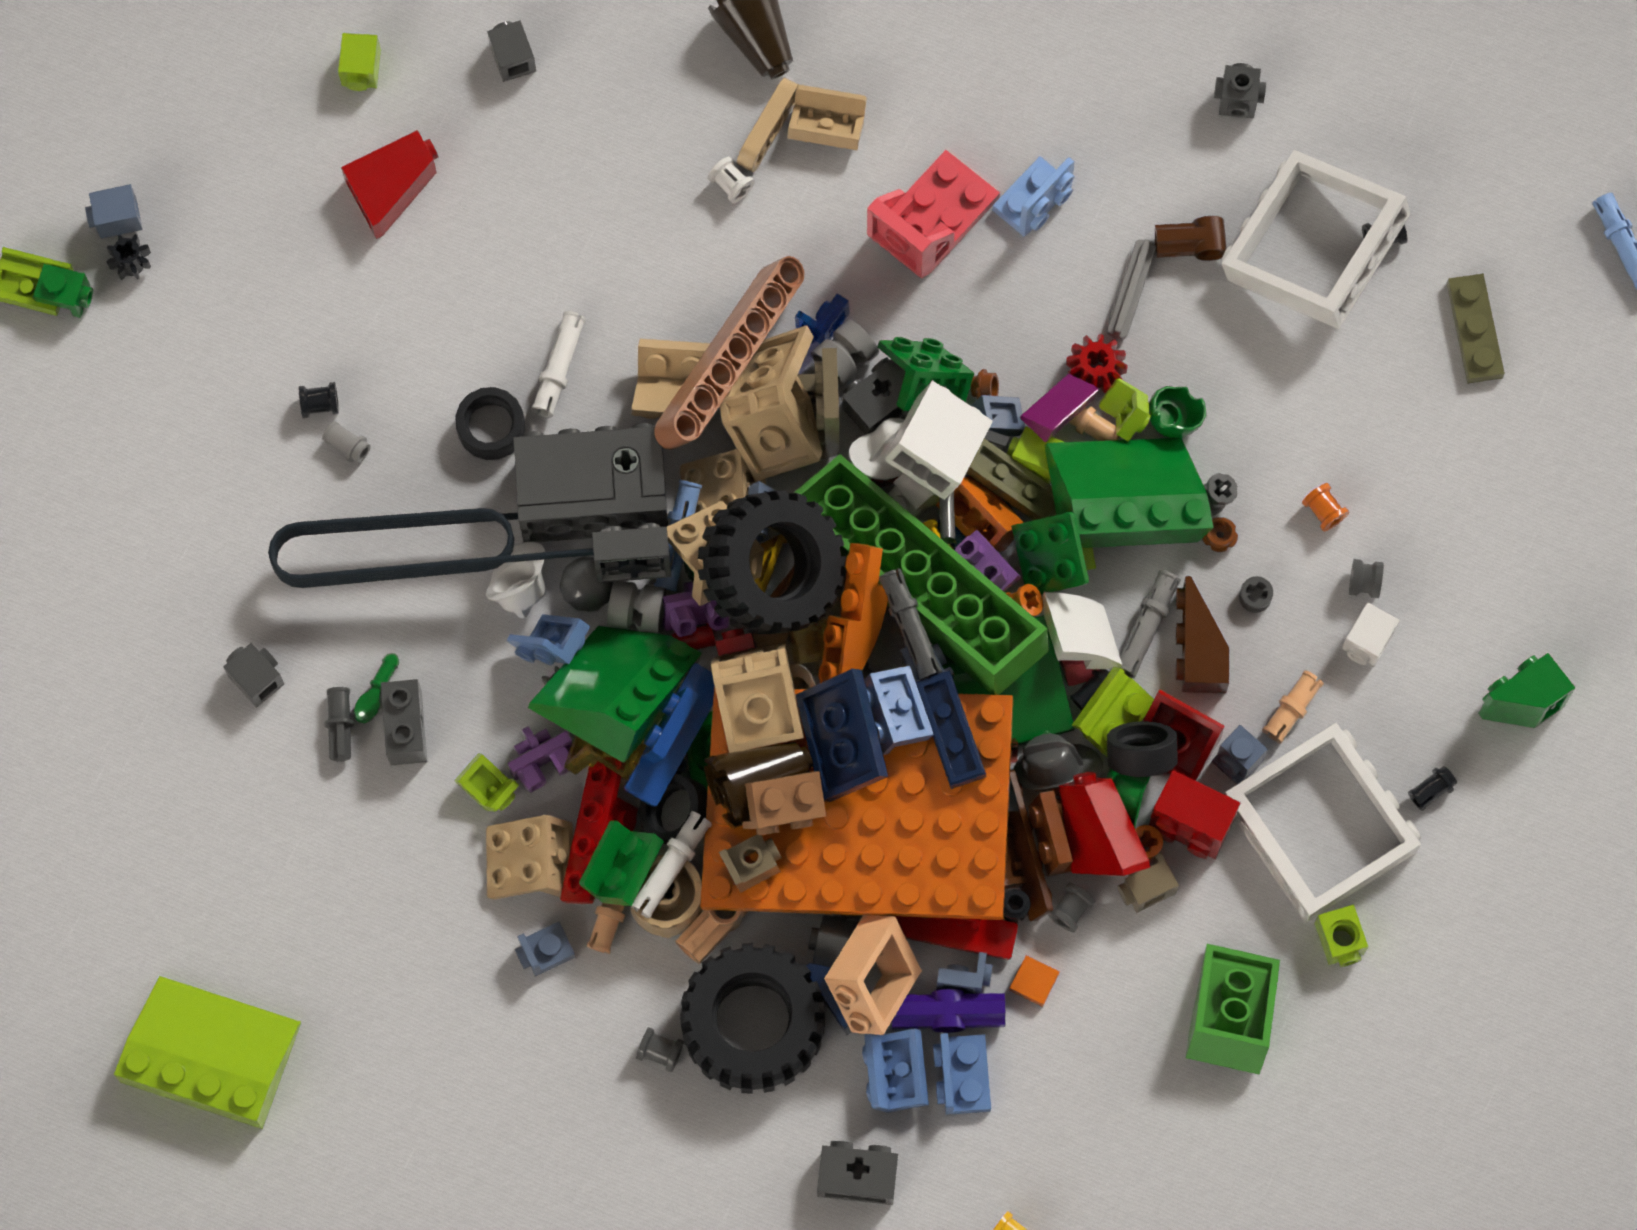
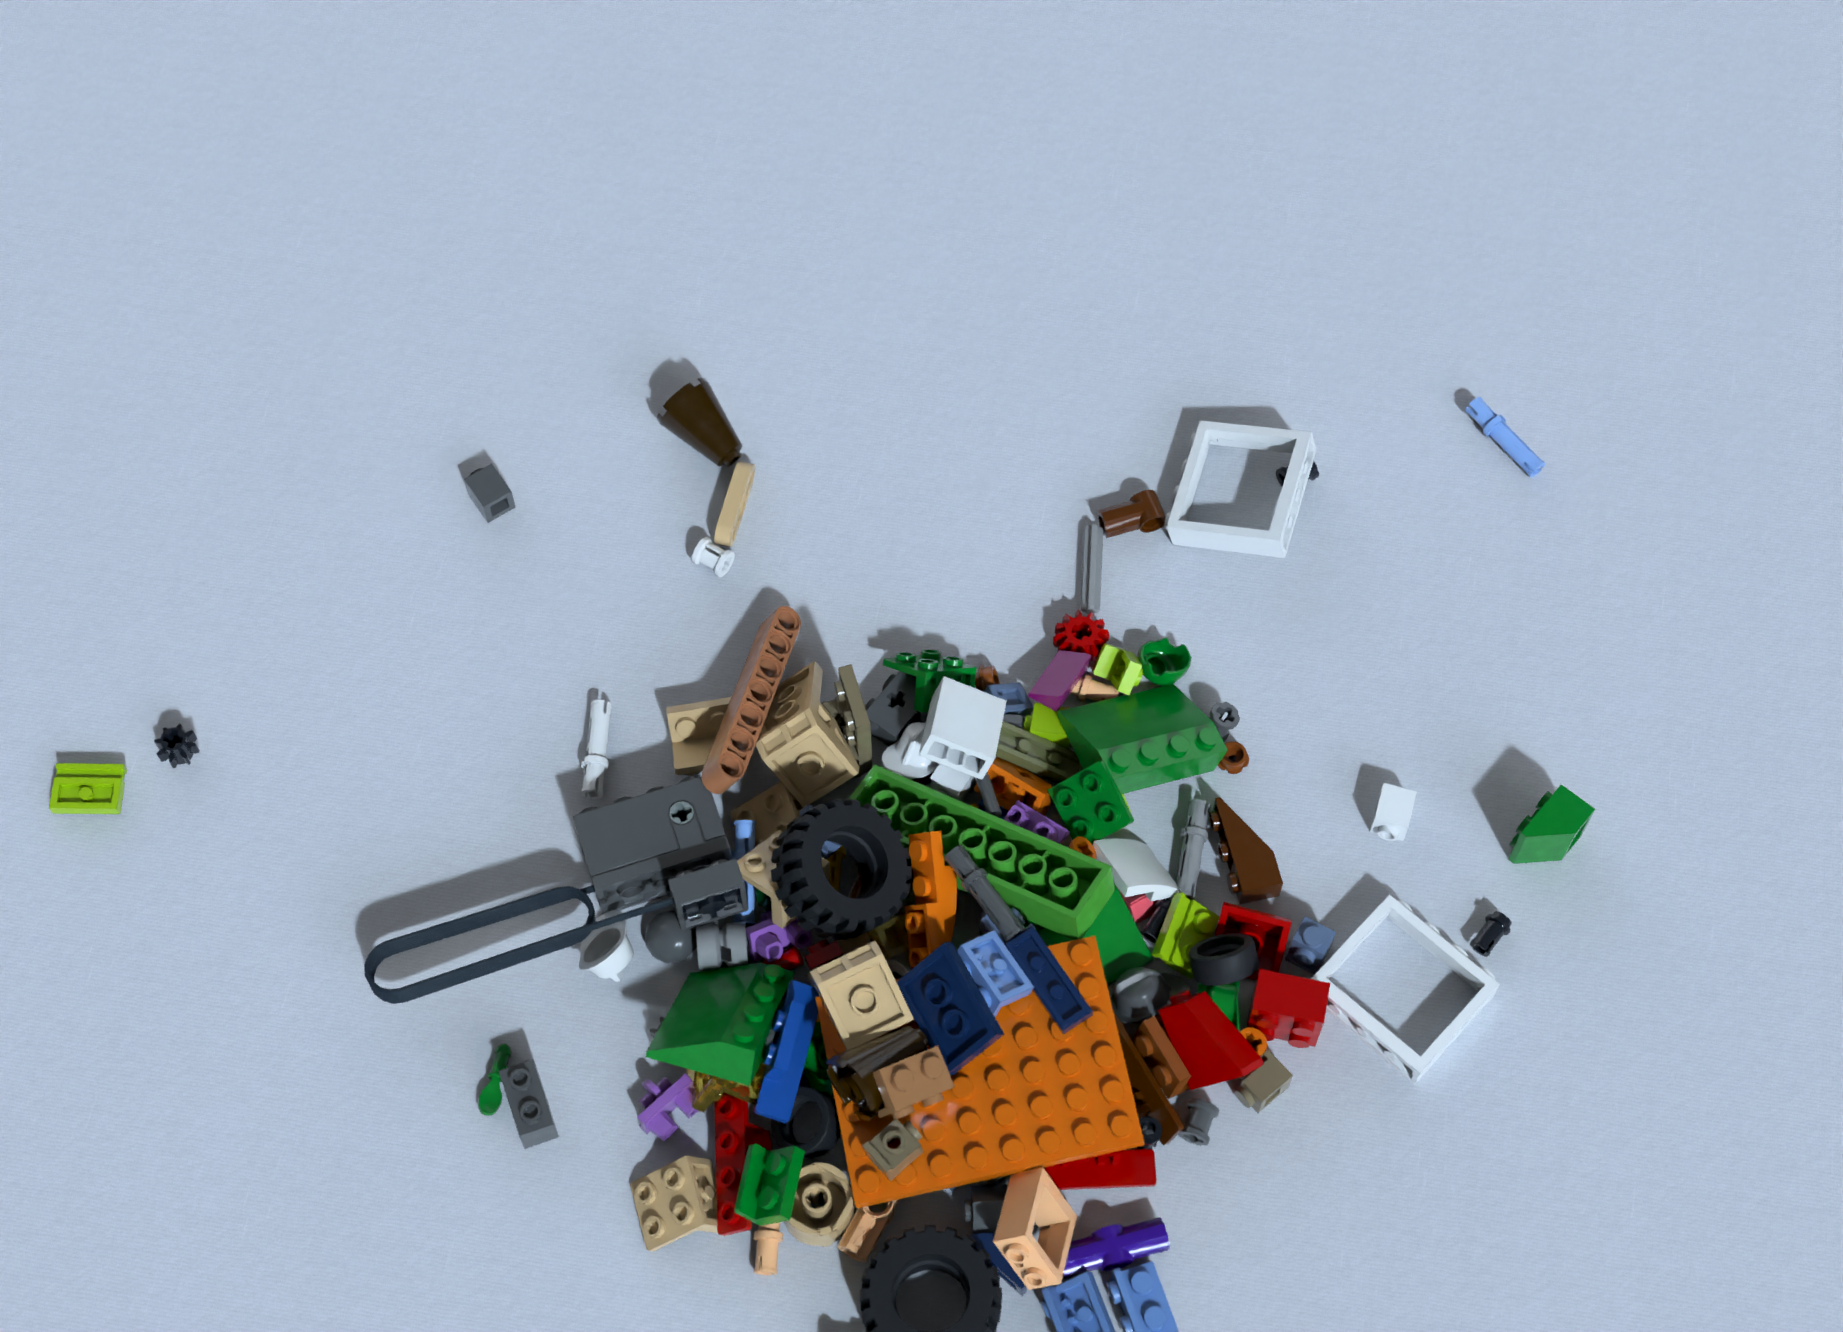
camera: 15 degrees left, 10 degrees down
(64, 289) = (121, 787): green bracket -> none
(114, 211) = (154, 708): sand blue brick -> none
(253, 673) = (375, 1093): dark grey brick -> none
(318, 400) = (381, 831): black bush -> none
(339, 724) = (467, 1121): dark grey axle -> none
(352, 446) = (424, 865): light grey pin -> none
(359, 61) = (354, 531): lime brick -> none
(390, 179) = (404, 625): red slope -> none
(478, 399) = (538, 792): black tyre -> none
(487, 784) = (621, 1143): lime bracket -> none
(544, 949) = (714, 1286): sand blue bracket -> none
(551, 640) = (651, 993): medium blue bracket -> none
(671, 863) = (822, 1157): white pin -> none
(827, 117) = (785, 485): tan bracket -> none
(828, 318) = (830, 655): clear blue bracket -> none
(853, 349) = (866, 670): light grey wheel -> none
(931, 215) = (898, 547): coral bracket -> none
(960, 978) = (1114, 1213): sand blue bracket -> none
(1034, 981) = (1183, 1199): orange tile -> none
(1035, 194) = (985, 508): light blue bracket -> none
(1233, 1009) = (1376, 1179): bright green slope -> none
(1239, 90) = (1138, 385): dark grey brick -> none
(1260, 604) = (1272, 795): dark grey bush -> none
(1292, 706) = (1343, 892): light nougat pin -> none
(1325, 507) = (1318, 712): orange bush -> none
(1341, 920) = (1453, 1071): lime brick -> none
(1366, 578) = (1373, 764): dark grey wheel -> none
(1475, 328) = (1399, 534): olive plate -> none

